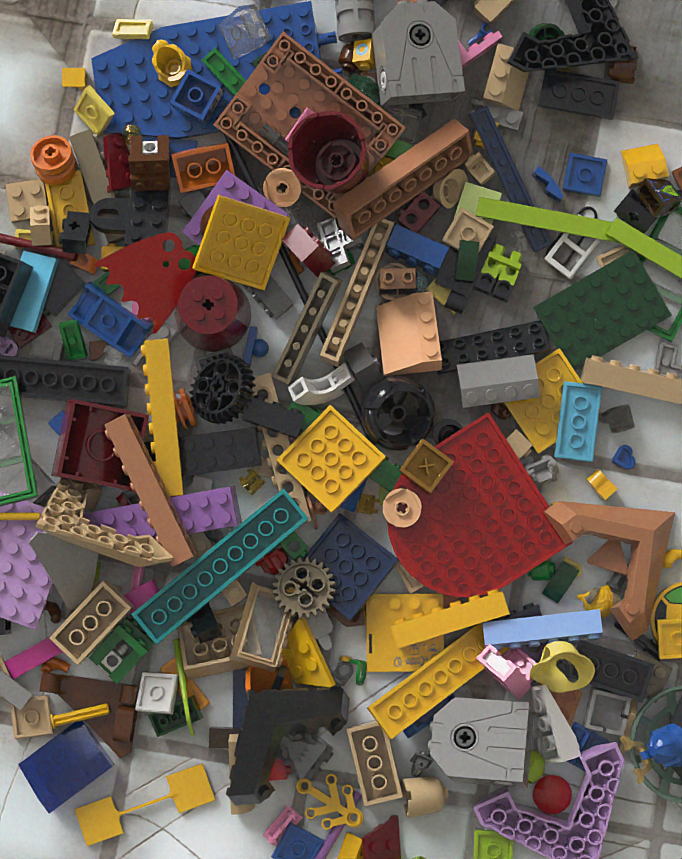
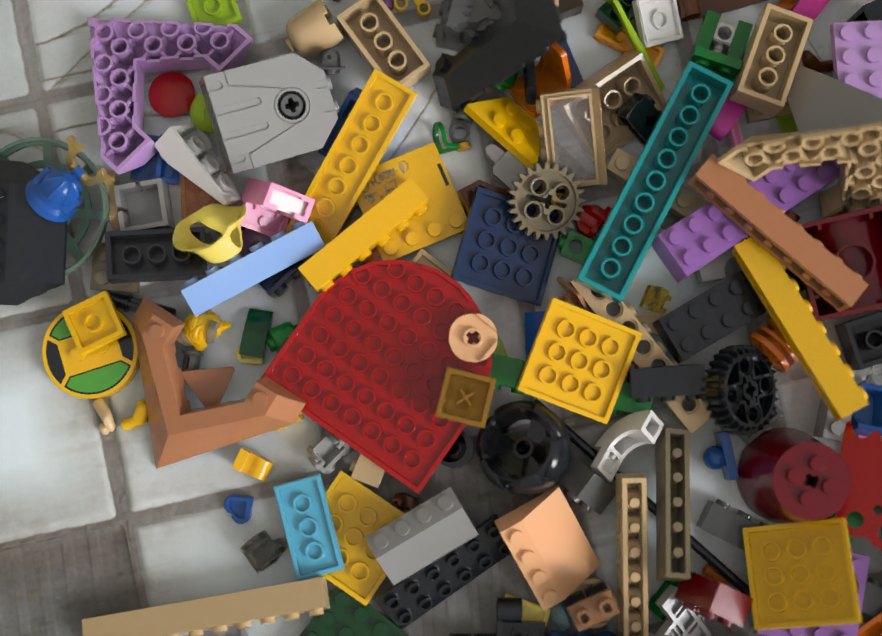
camera: 155 degrees right, 0 degrees up
(366, 504) = (514, 328): clear yellow tile -> none

